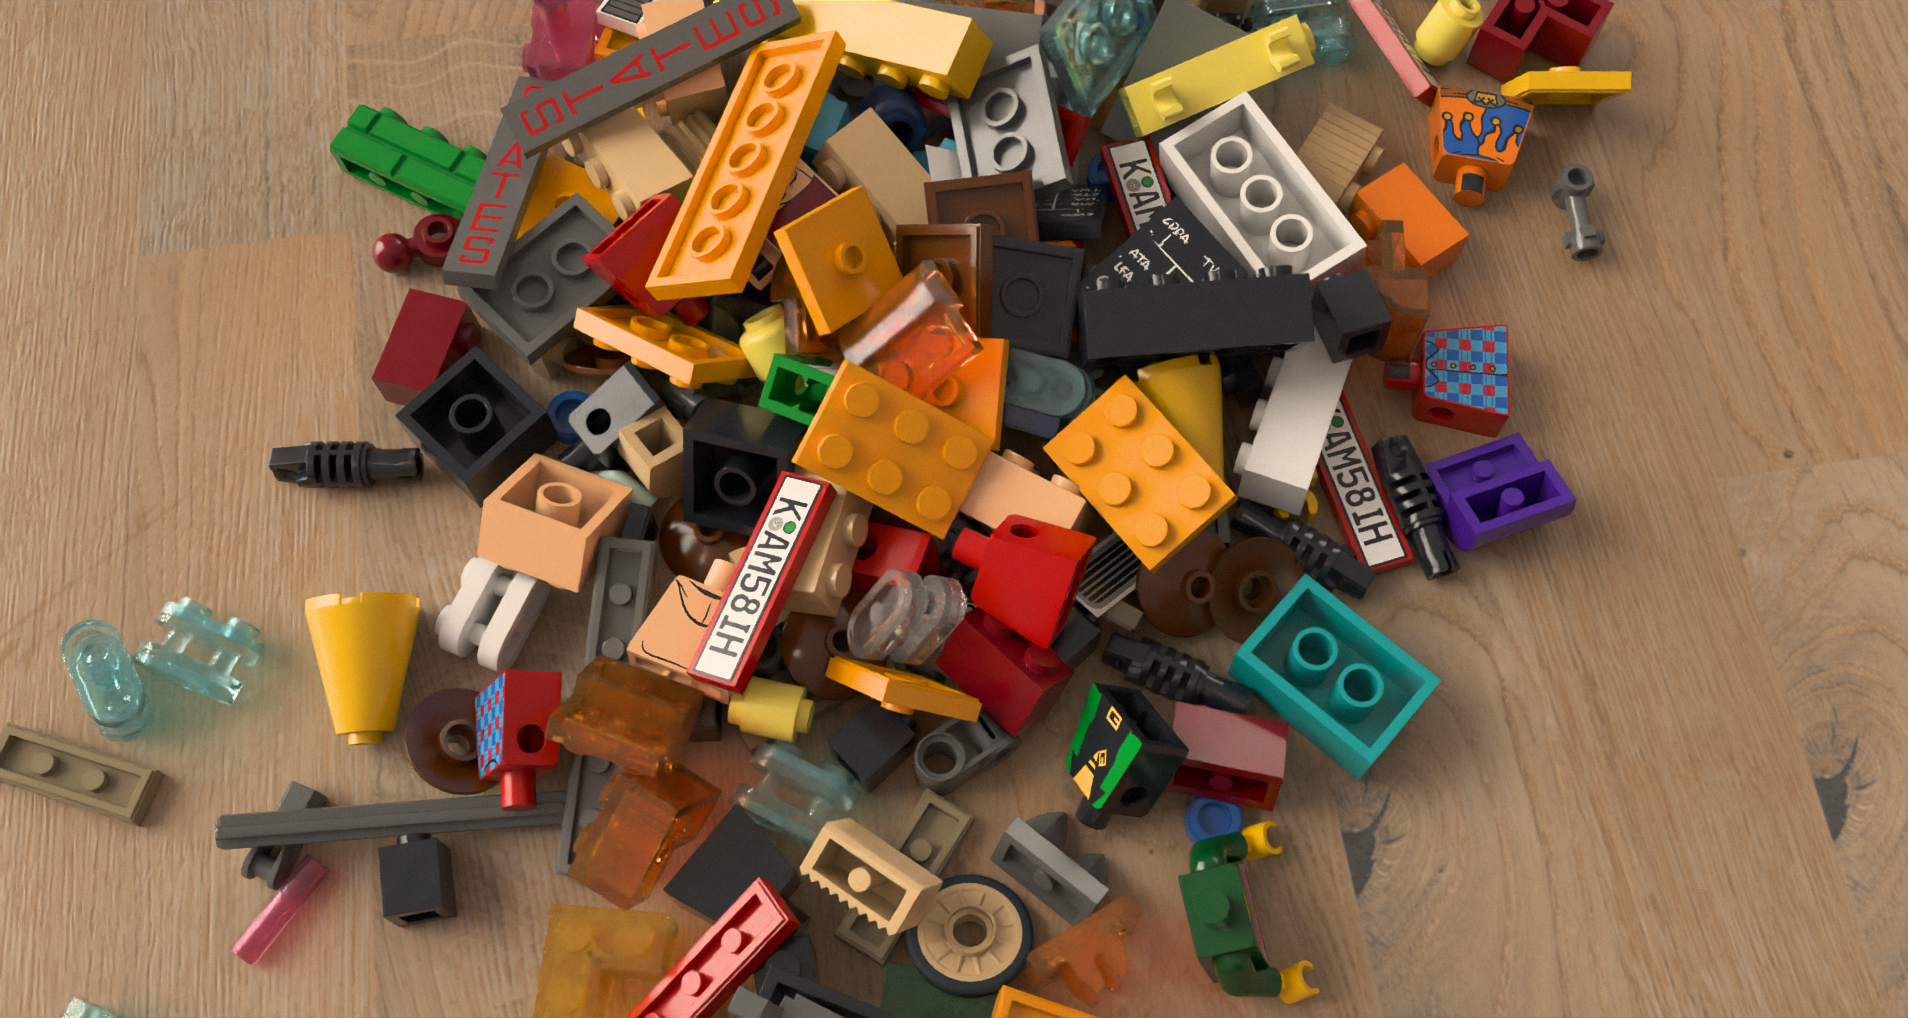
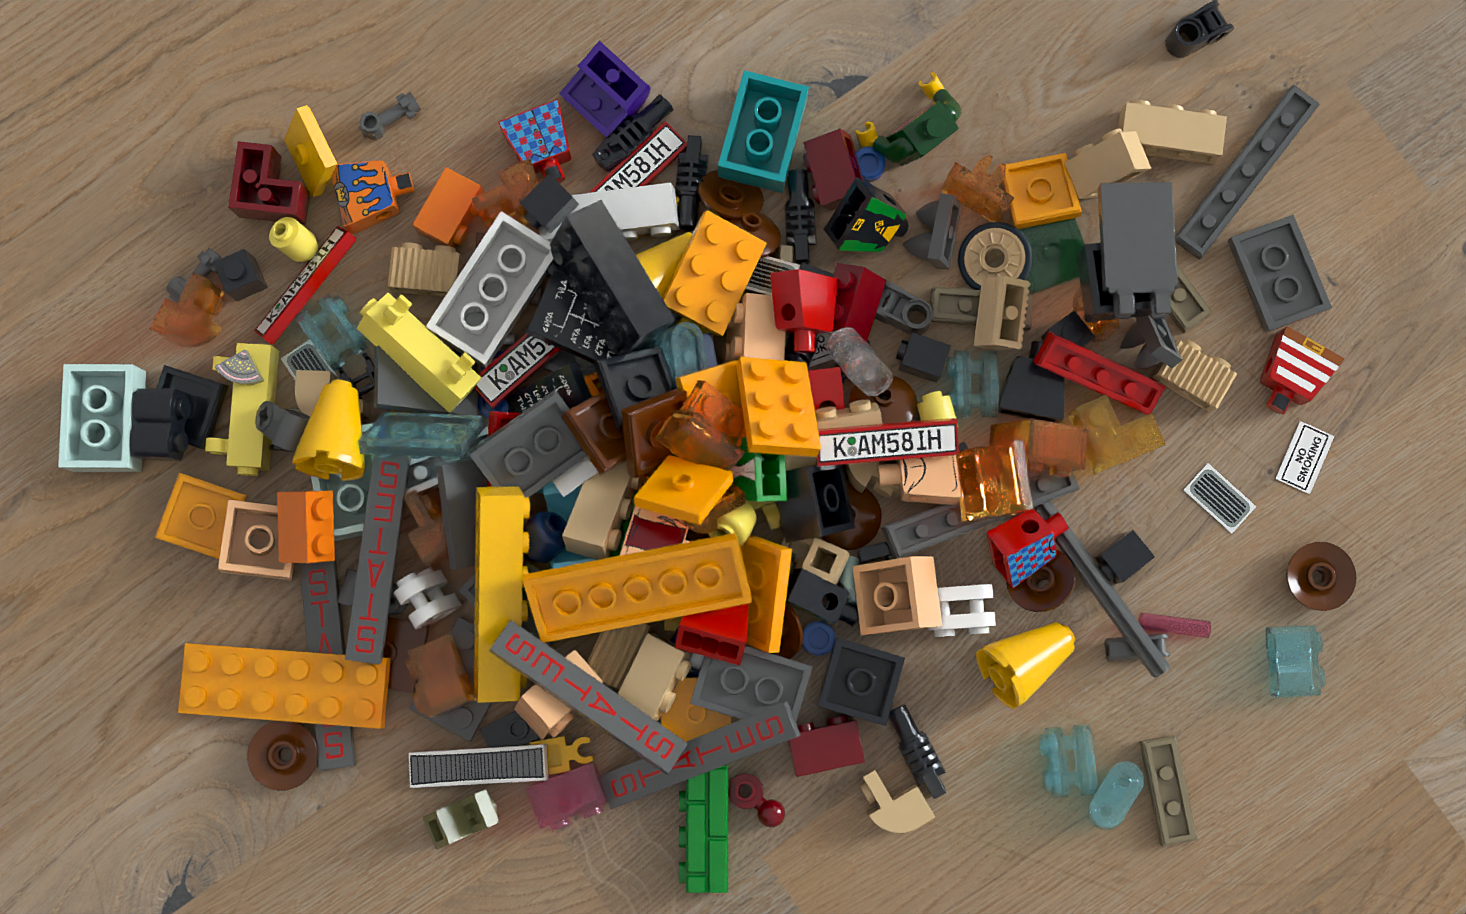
camera: 120 degrees left, 15 degrees up
(289, 394) = (896, 814): none -> tan brick
(903, 690) = (897, 345): light orange plate -> none

